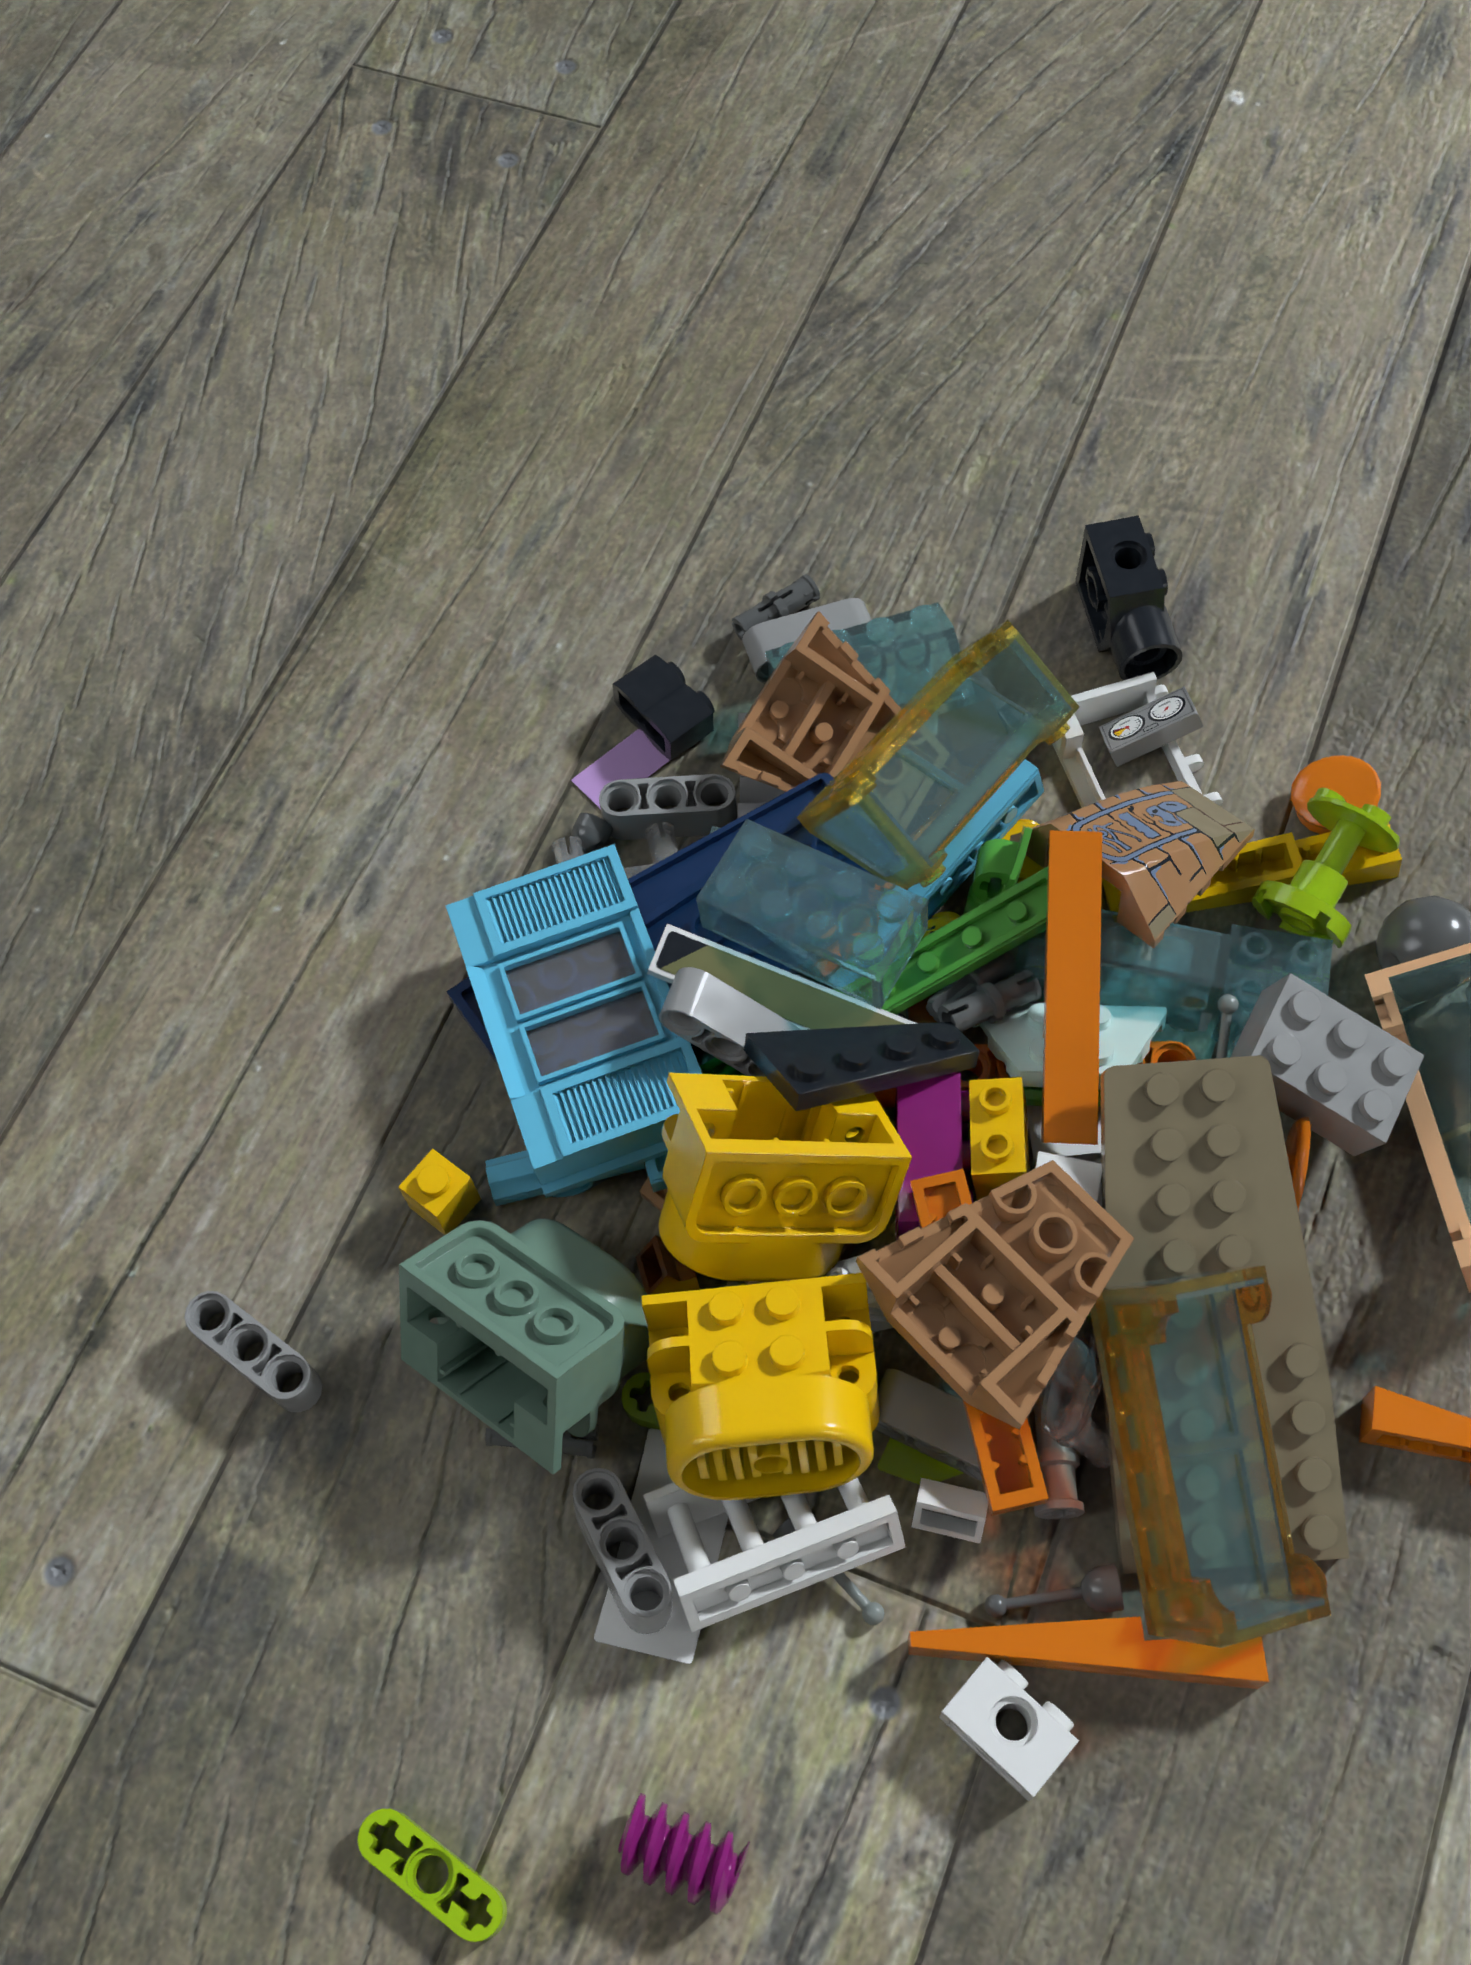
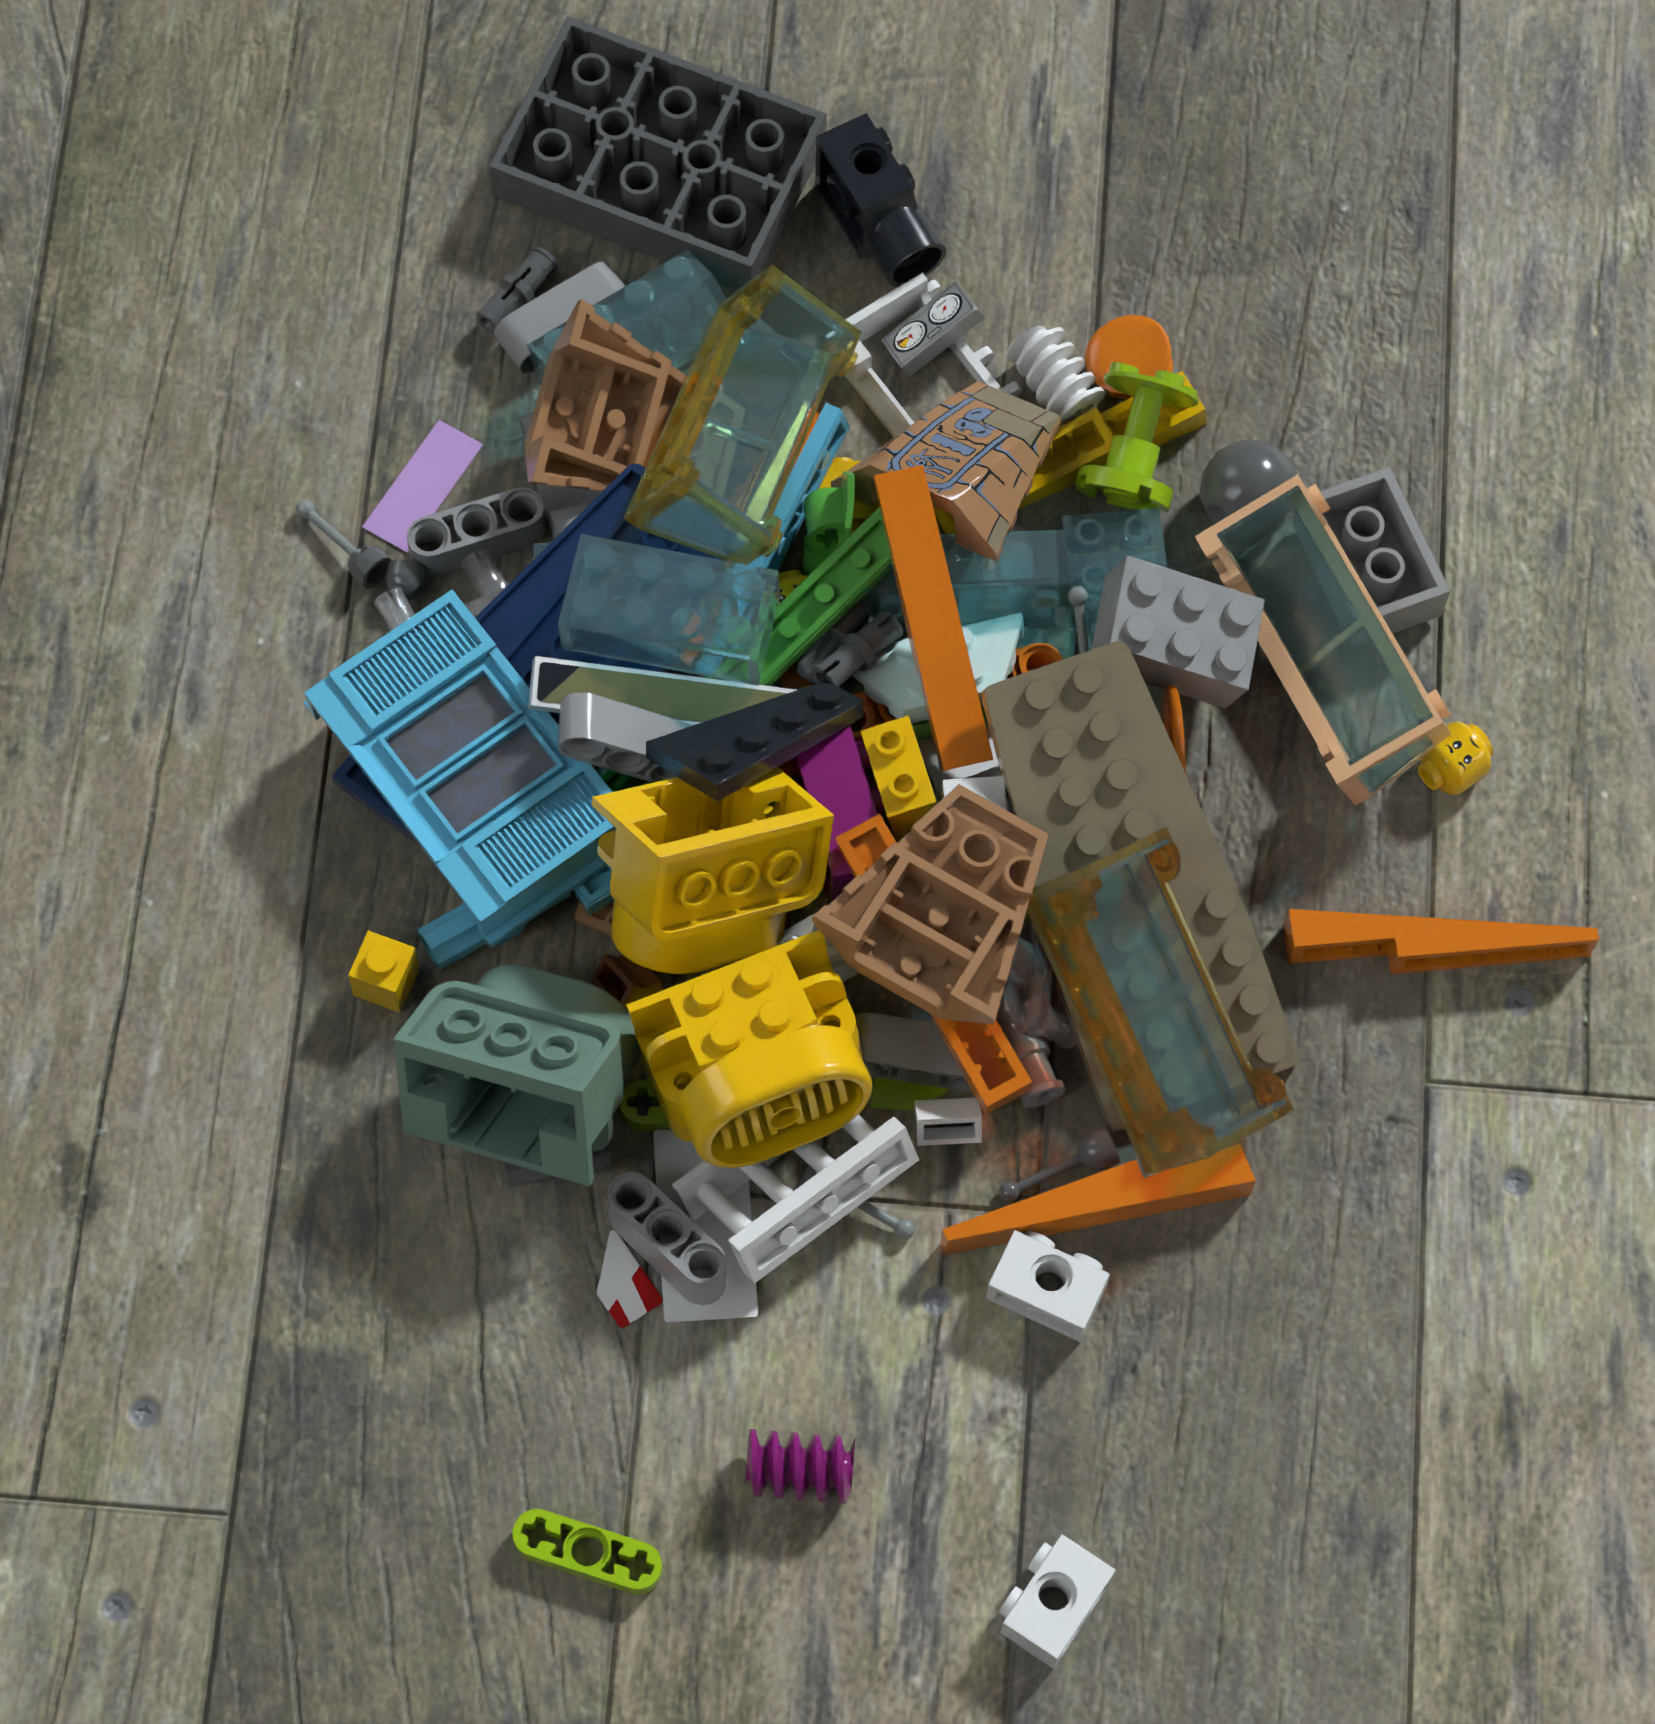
camera: 25 degrees left, 5 degrees up
(241, 1331) = (242, 1147): light grey beam -> none
(559, 811) = (365, 564): none -> hinge
(569, 1584) = (624, 1285): none -> white sticker
(664, 706) = (437, 427): black brick -> none
(937, 517) = (657, 153): none -> dark grey brick
(1259, 791) = (1052, 374): none -> white piece

